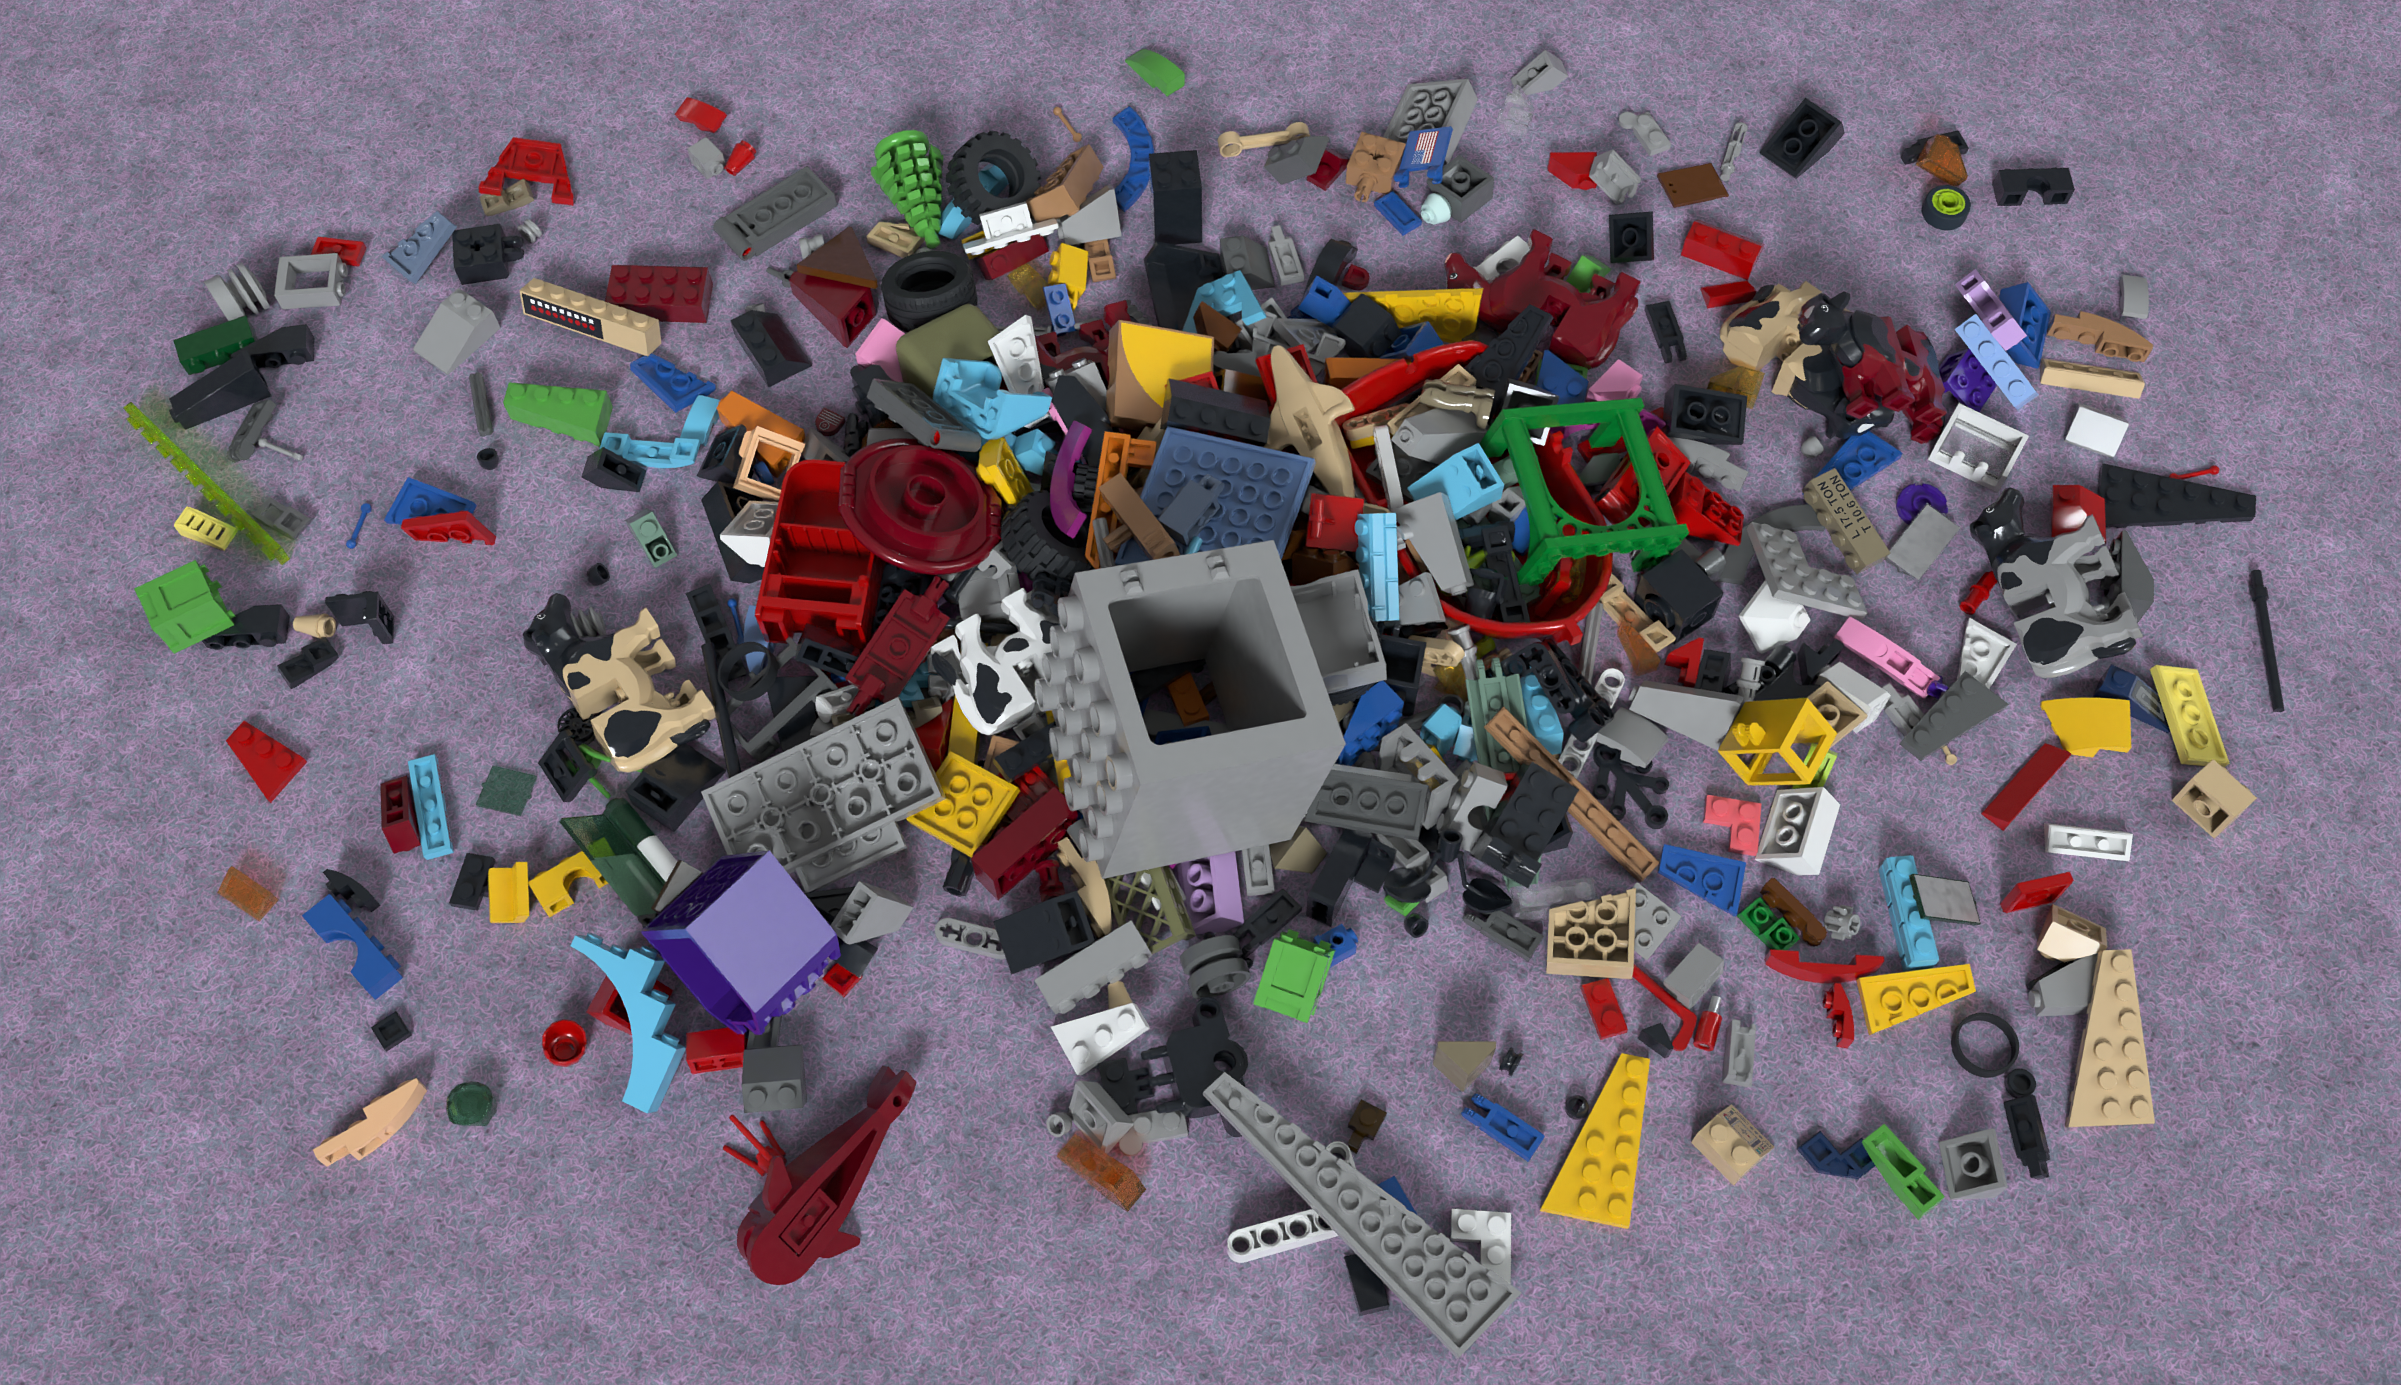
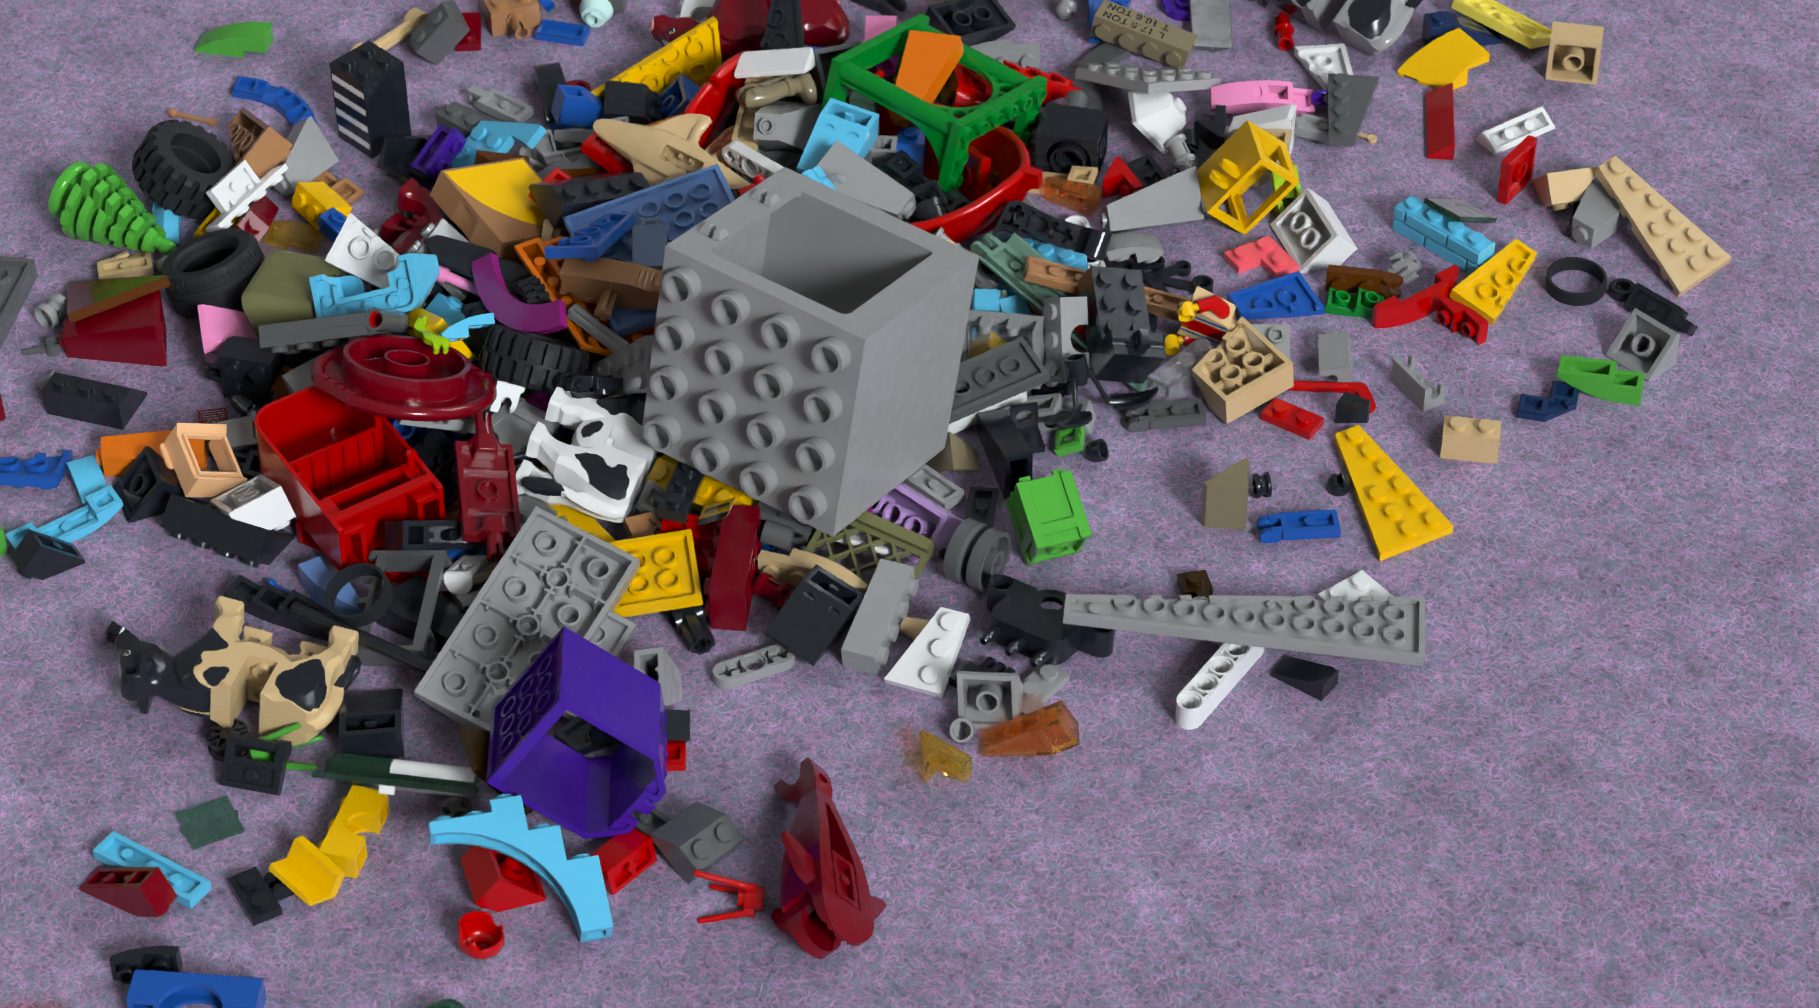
camera: 40 degrees left, 20 degrees down
(651, 537) = (138, 577): sand green slope -> none
(967, 478) = (435, 341): none -> lime hair
(997, 482) = (459, 330): none -> medium azure slope
(1013, 1133) = (942, 756): none -> clear yellow slope
(1045, 785) = (715, 511): none -> sticker
(1150, 472) = (594, 240): none -> blue wing
(1189, 279) = (439, 152): none -> dark purple bracket
(1475, 374) = (775, 62): none -> white slope
(1589, 459) = (926, 66): none -> orange slope
(1608, 865) = (1202, 316): none -> torso
(1708, 1026) = (1378, 382): red piece -> none

